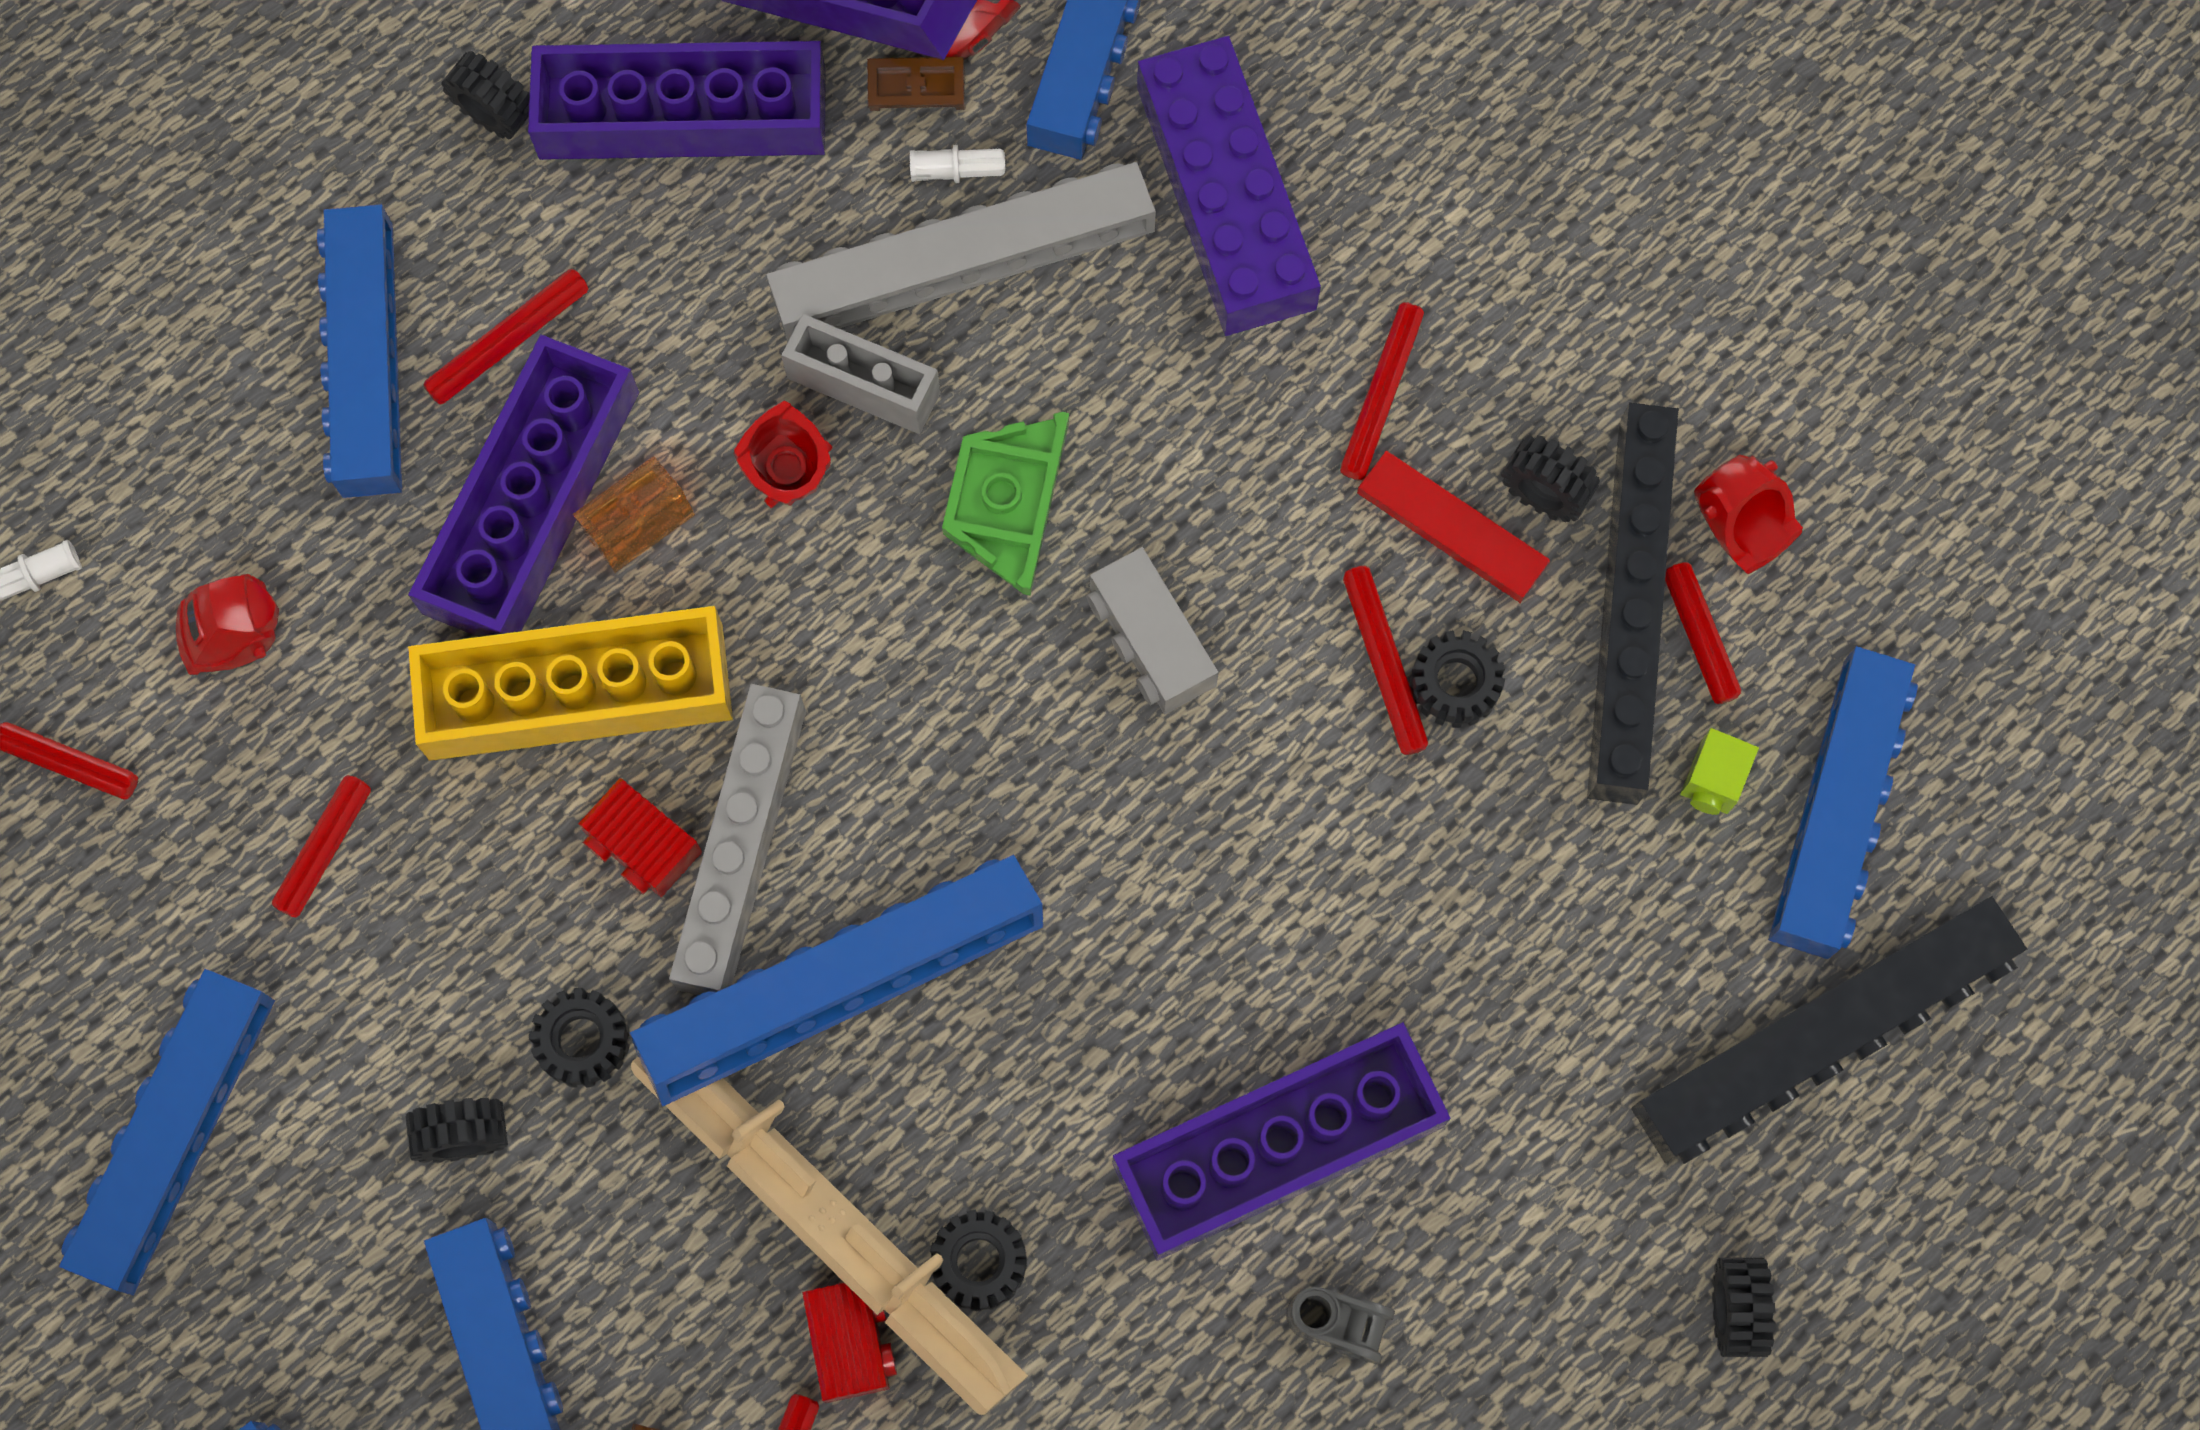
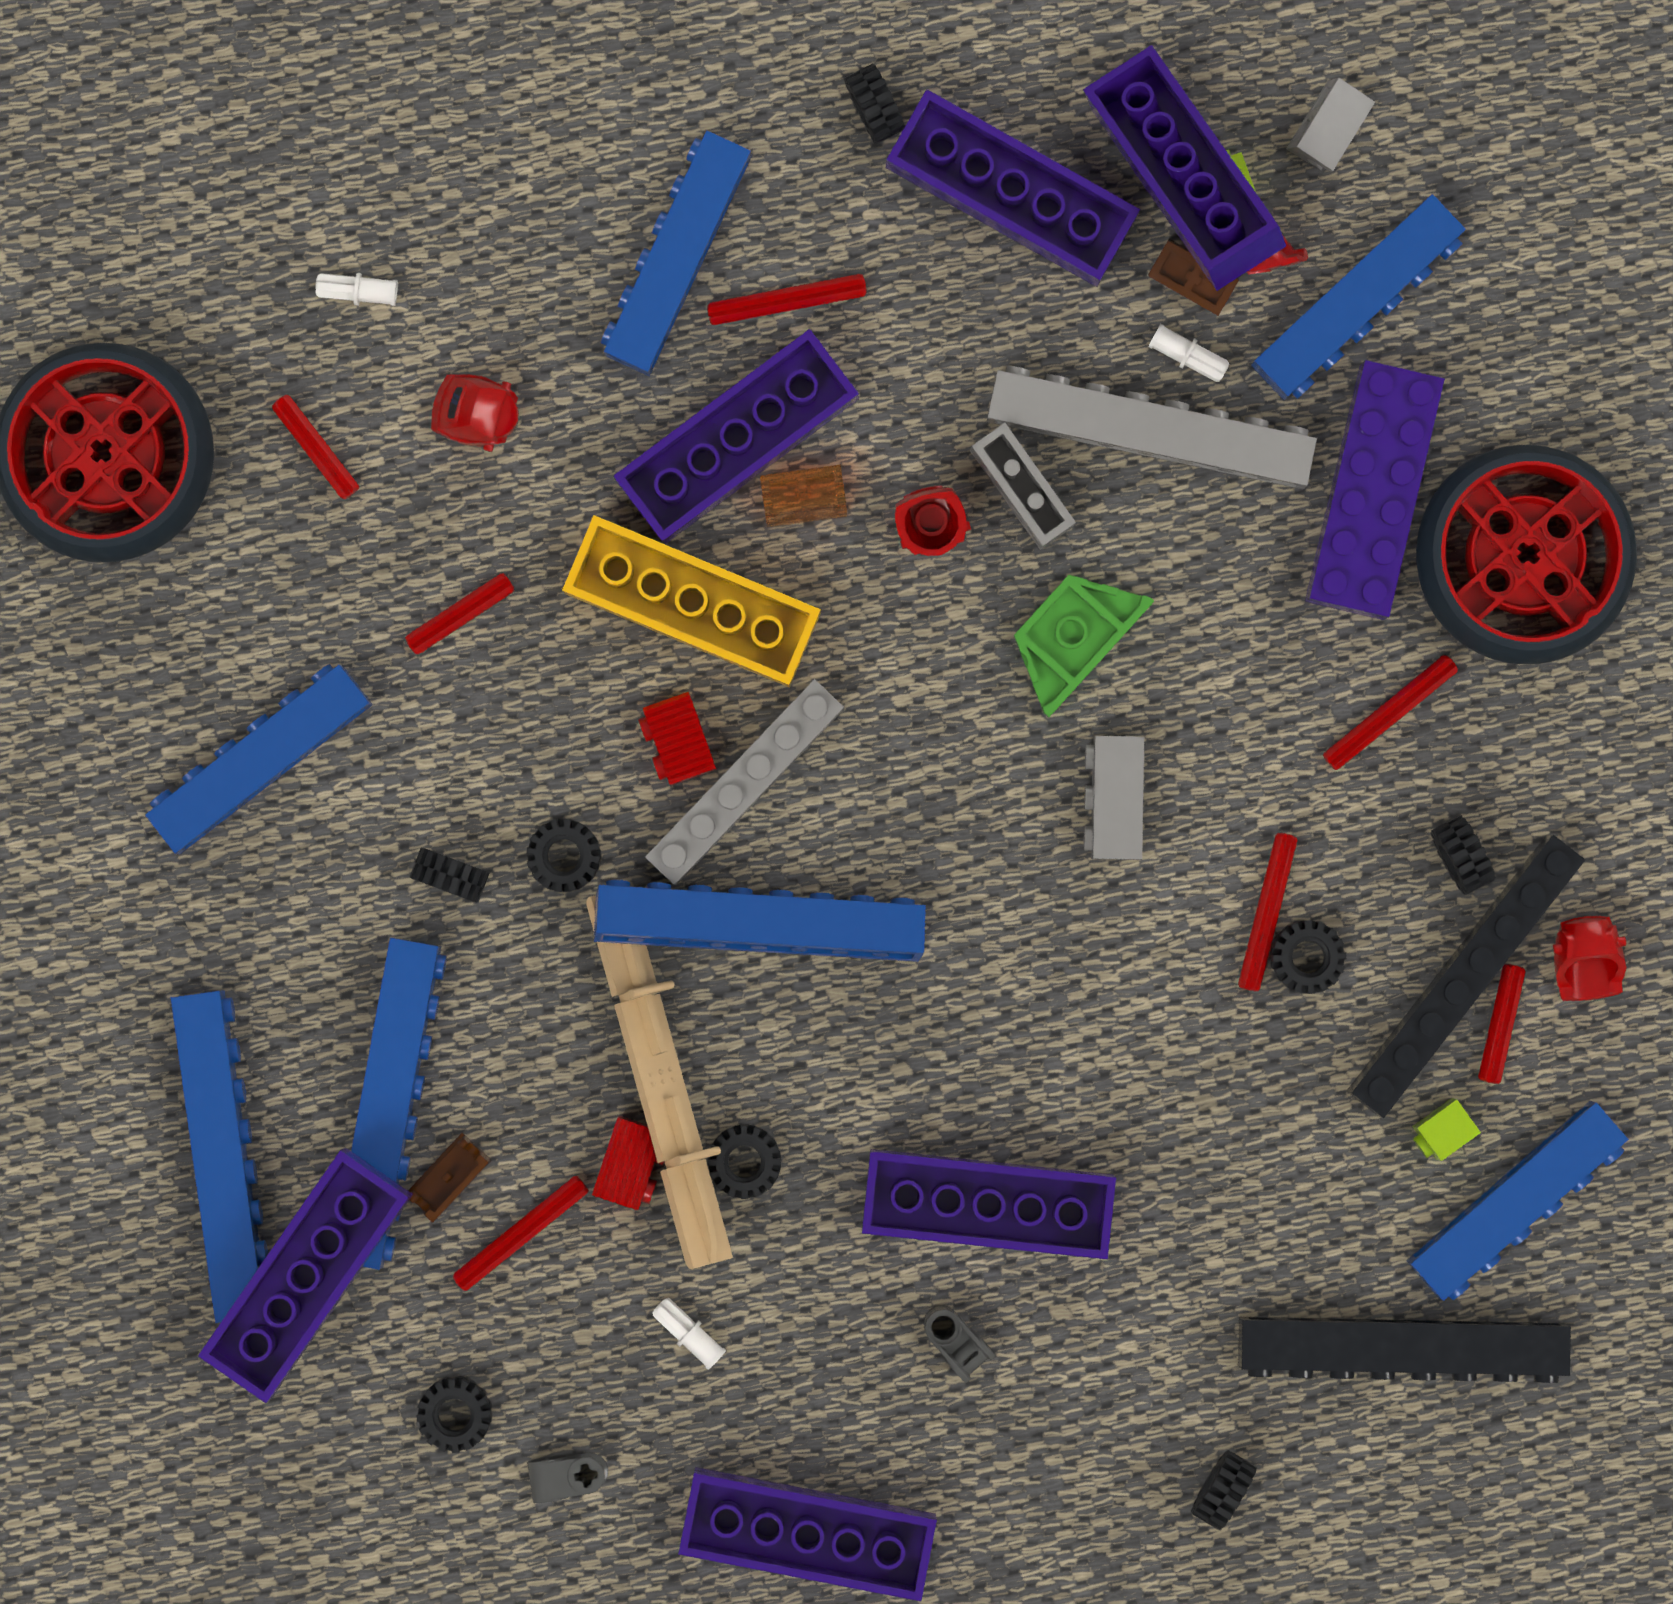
camera: 30 degrees right, 15 degrees up
(1440, 75) = (1575, 609): none -> red wheel
(1453, 526) = (1377, 843): red tile -> none

